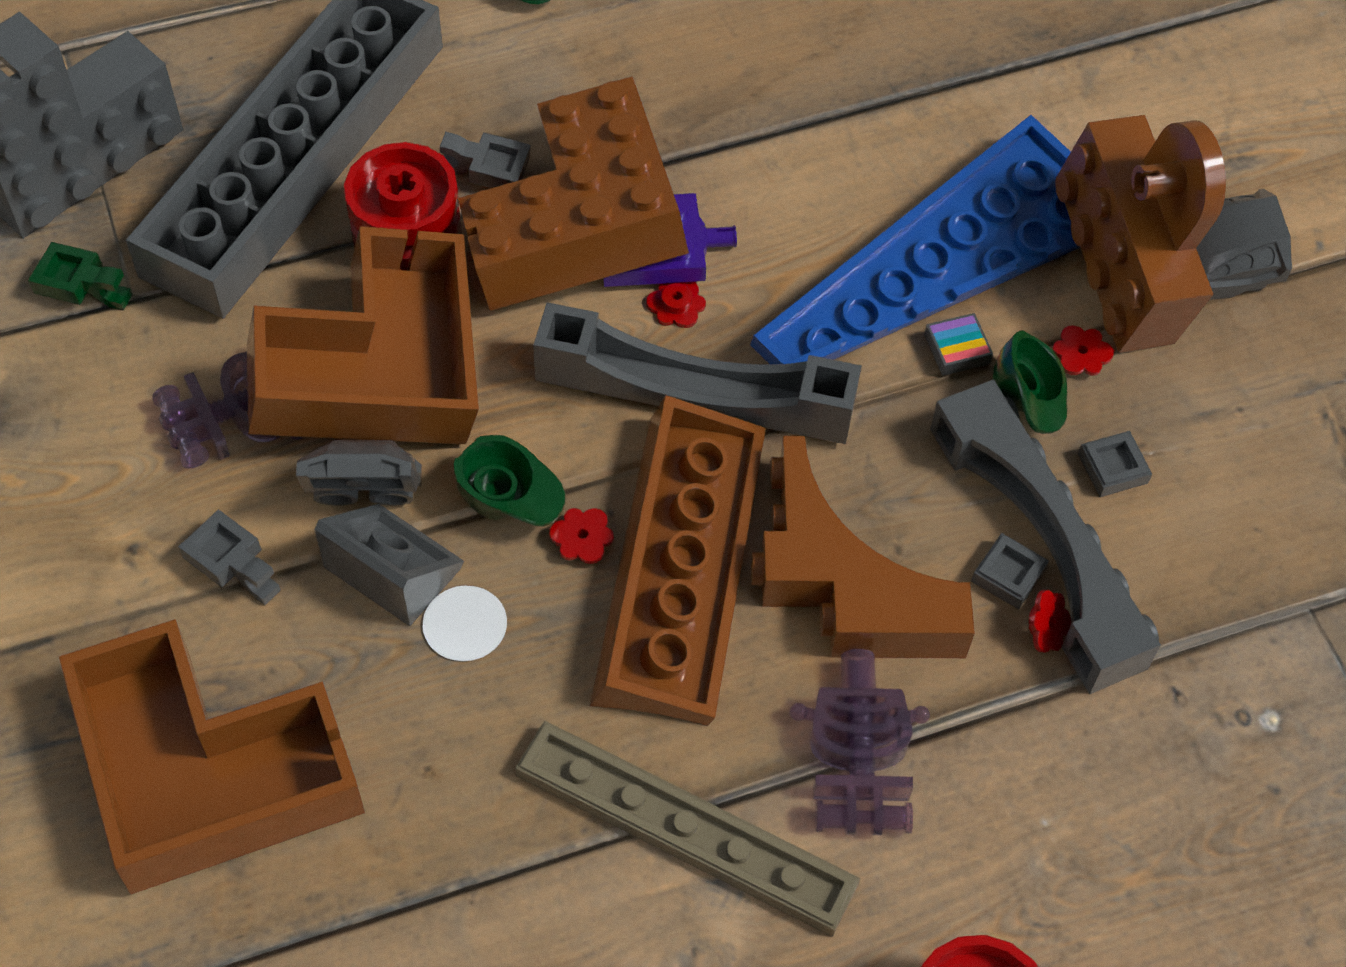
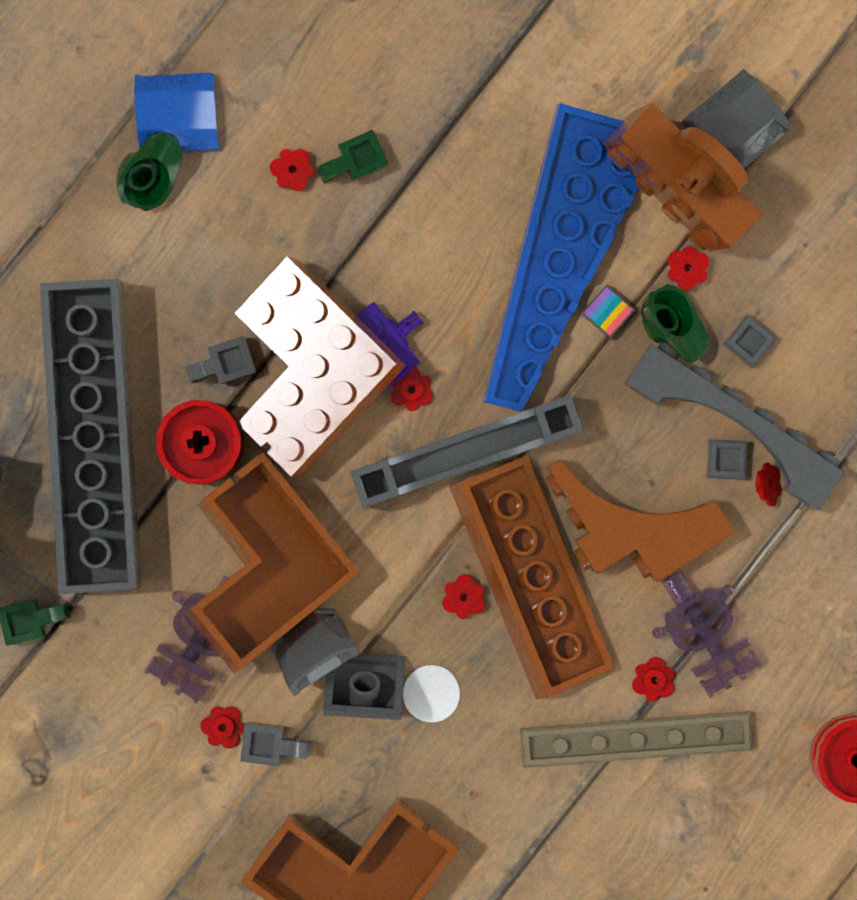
camera: 30 degrees left, 30 degrees up
(180, 503) = (230, 718): none -> red plant
(508, 480) = (403, 599): dark green piece -> none
(695, 45) = (298, 159): none -> red plant
(760, 784) = (654, 668): none -> red plant
(774, 64) = (358, 156): none -> dark green plate

